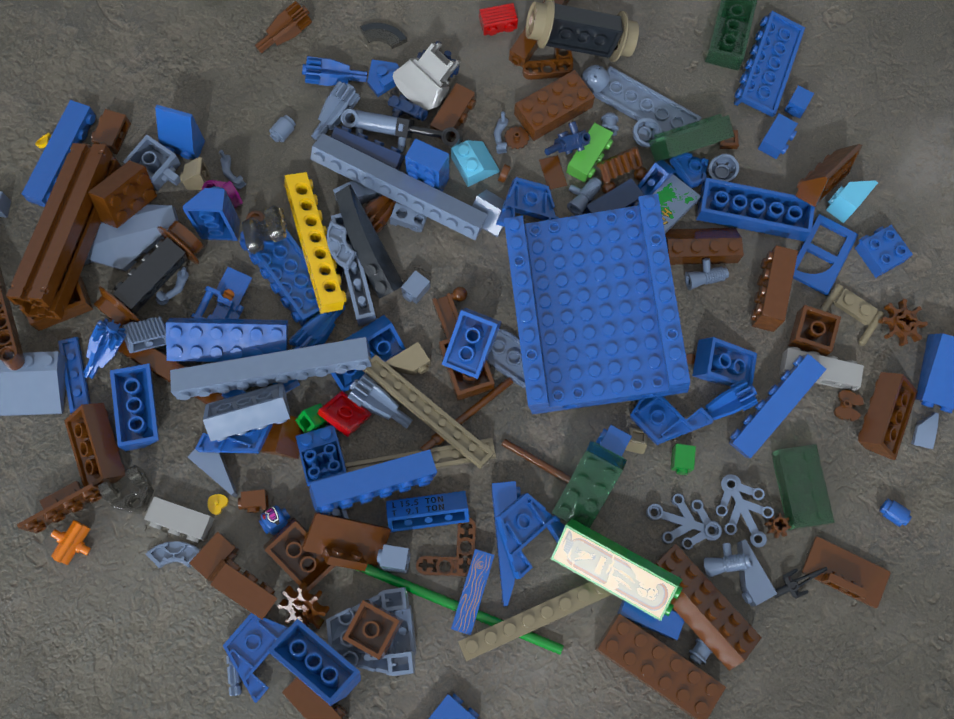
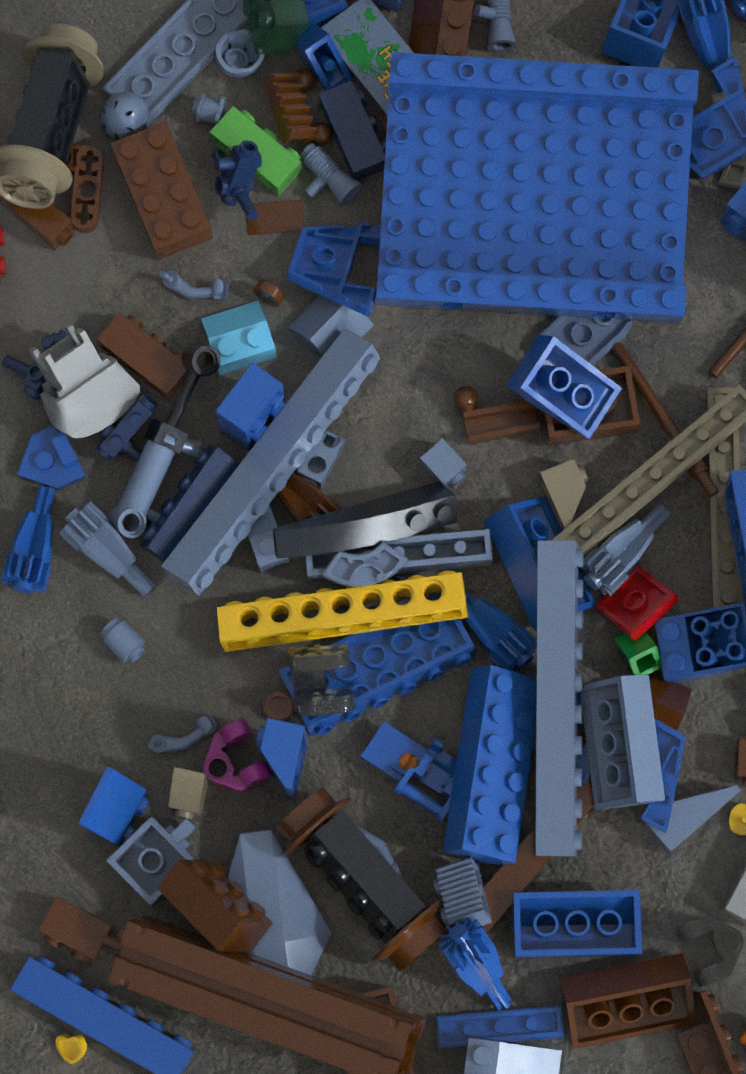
camera: 75 degrees left, 5 degrees up
(516, 137) = (203, 263): reddish brown piece -> none

